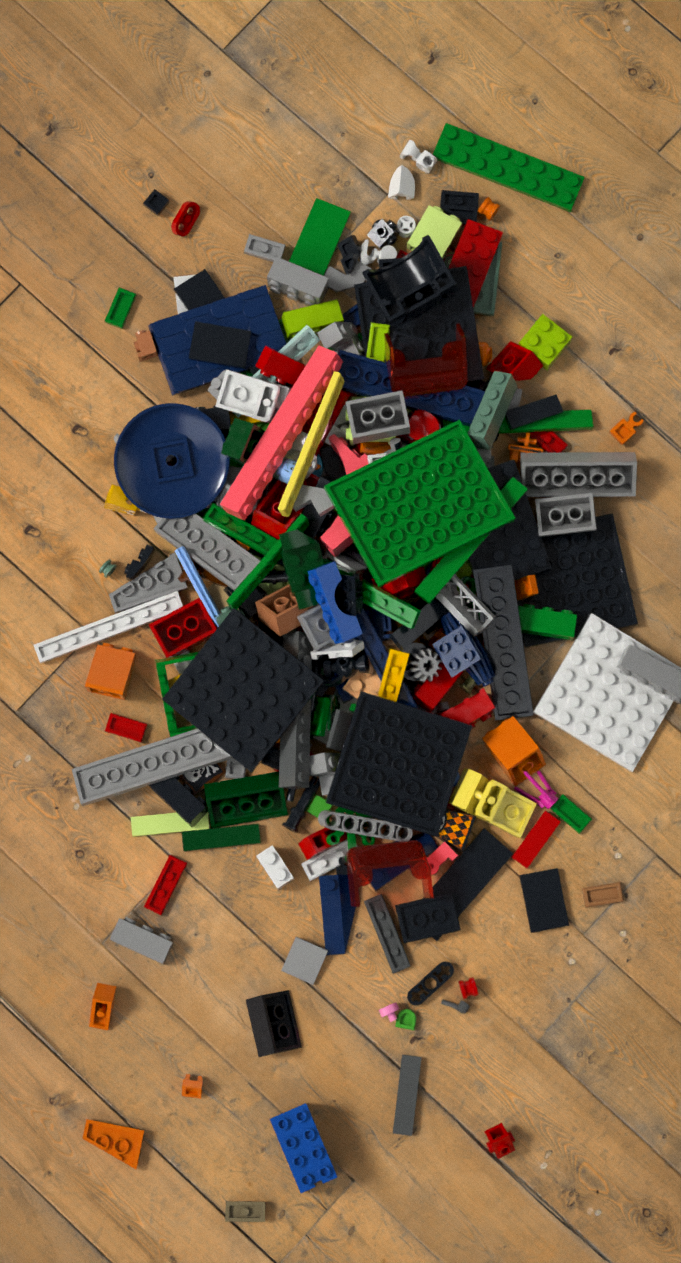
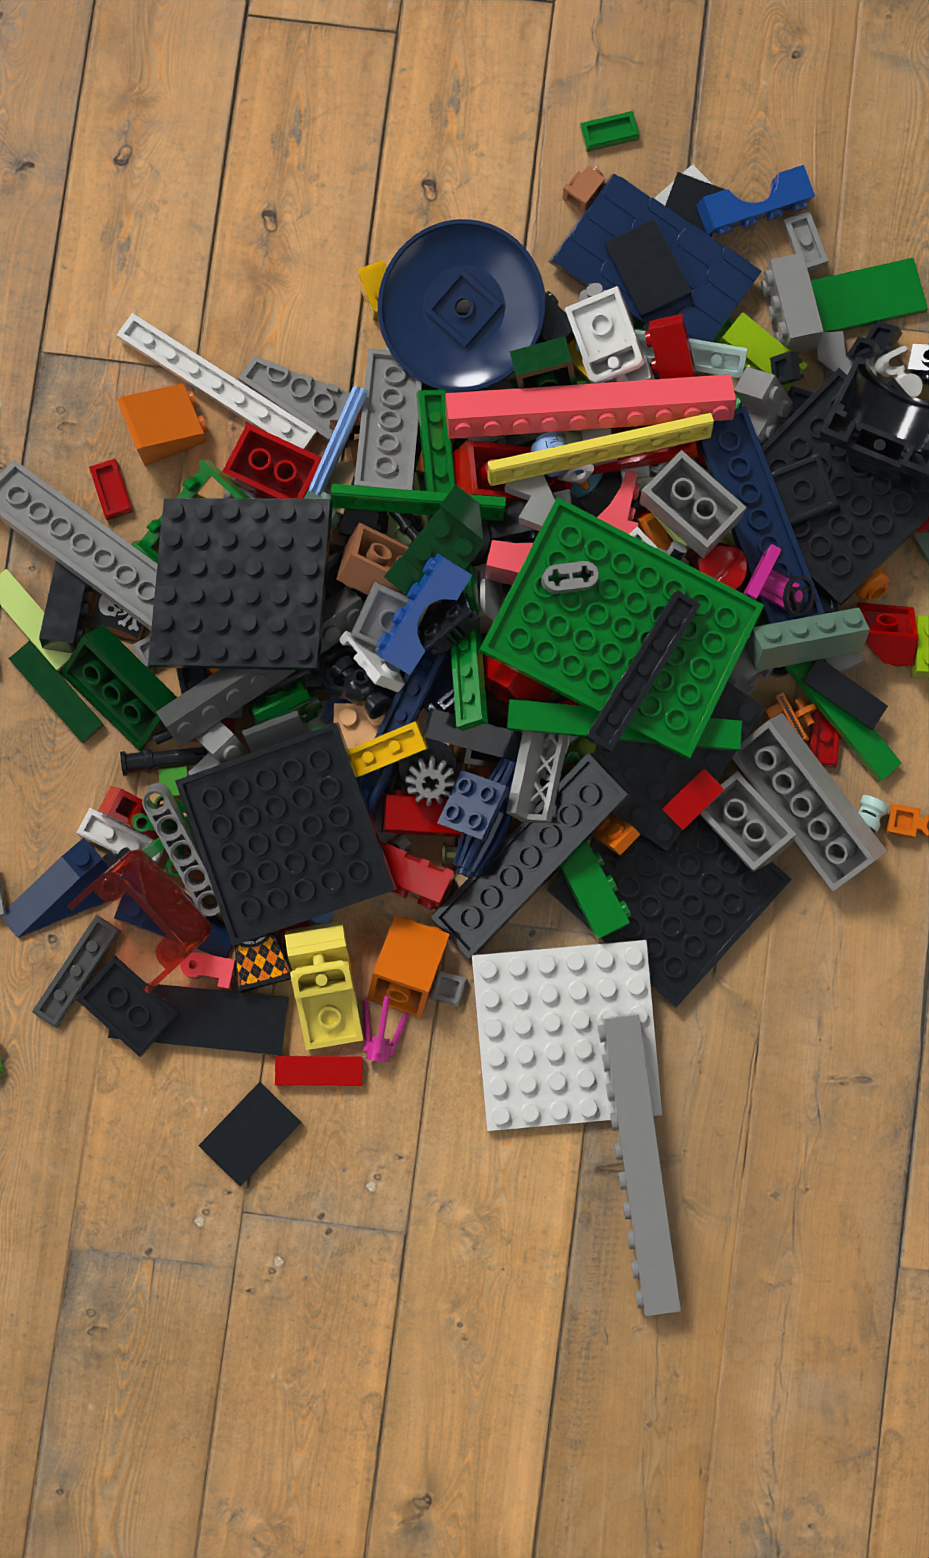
camera: 55 degrees right, 0 degrees up
(107, 568) = (286, 333): sand green bush -> none
(135, 568) = (307, 363): black slope -> none
(156, 202) = (766, 81): black plate -> none
(185, 219) = (771, 127): red plate -> none
(217, 279) = (725, 211): none -> blue arch
(275, 867) = (61, 779): white brick -> none
(332, 312) = (786, 367): none -> black tile
(370, 508) = (569, 570): none -> light grey beam
(376, 341) = (790, 446): lime tile -> none
(428, 374) = (789, 526): clear red windscreen -> none
(437, 969) = (32, 1054): black beam -> none
(452, 508) = (642, 671): none -> black plate
(453, 405) = (777, 587): none -> dark pink piece
(462, 1007) = (46, 1125): dark grey hand -> none
(468, 988) = (75, 1116): red wheel -> none
(535, 533) = (693, 799): none -> red tile
(541, 737) = (448, 988): none -> light grey tile
(570, 814) = (381, 1091): green tile -> none
(602, 894) = (308, 1201): medium nougat tile -> none
(606, 444) = (871, 811): none -> light aqua wheel

